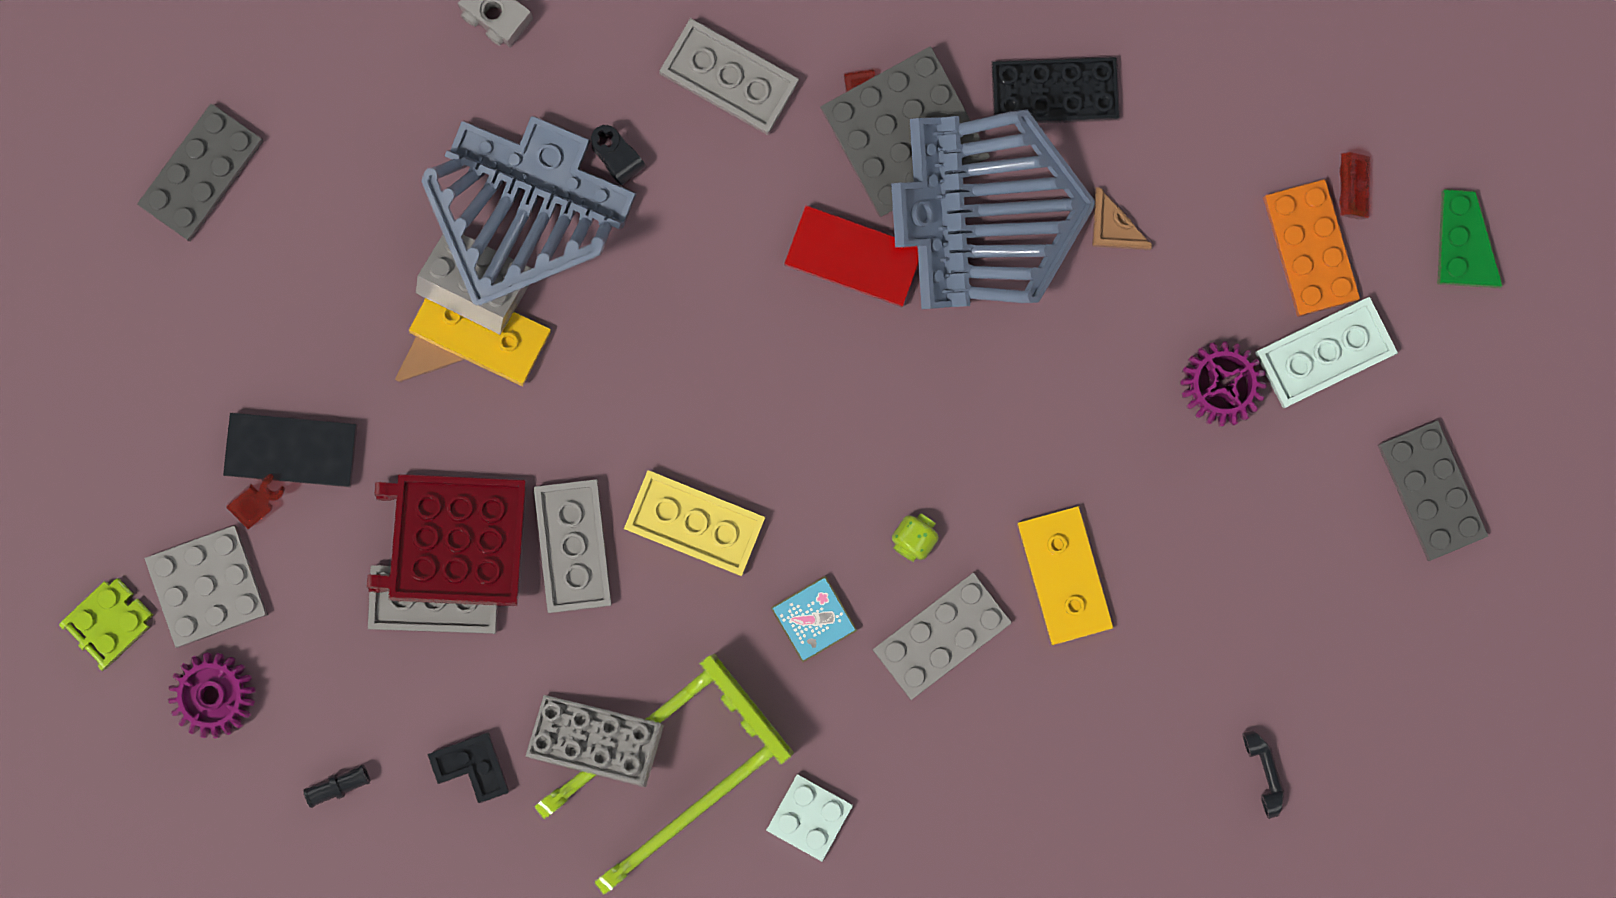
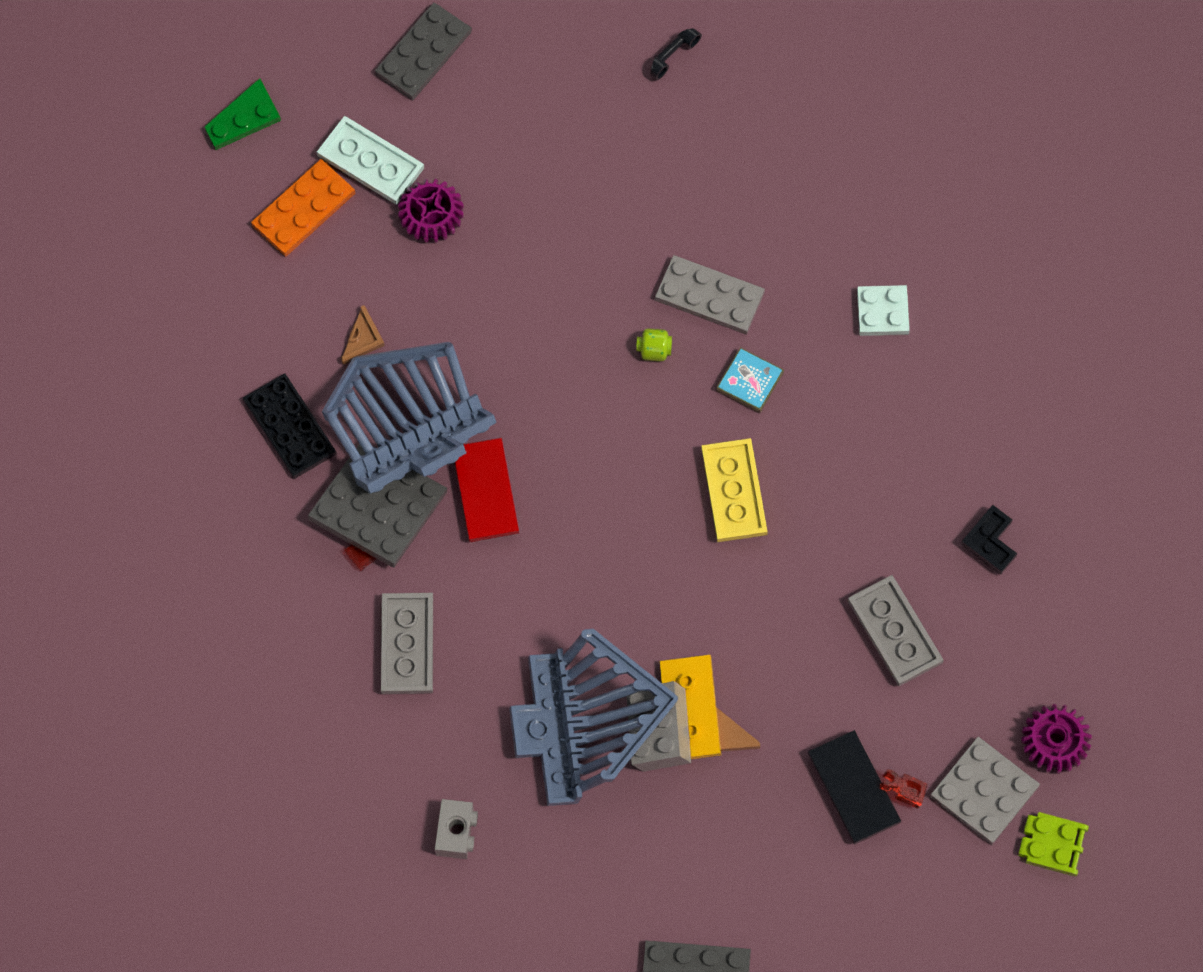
camera: 115 degrees left, 15 degrees down
(336, 786) = (1062, 620): black pin -> none
(454, 540) = (846, 636): dark red plate -> none
(572, 546) = (800, 560): light grey plate -> none
(594, 740) = (922, 466): light grey tile -> none
(619, 158) = (509, 684): black piece -> none
(753, 723) = (862, 354): lime piece -> none
(1065, 575) = (620, 241): yellow plate -> none
(1354, 185) = (250, 198): clear red plate -> none

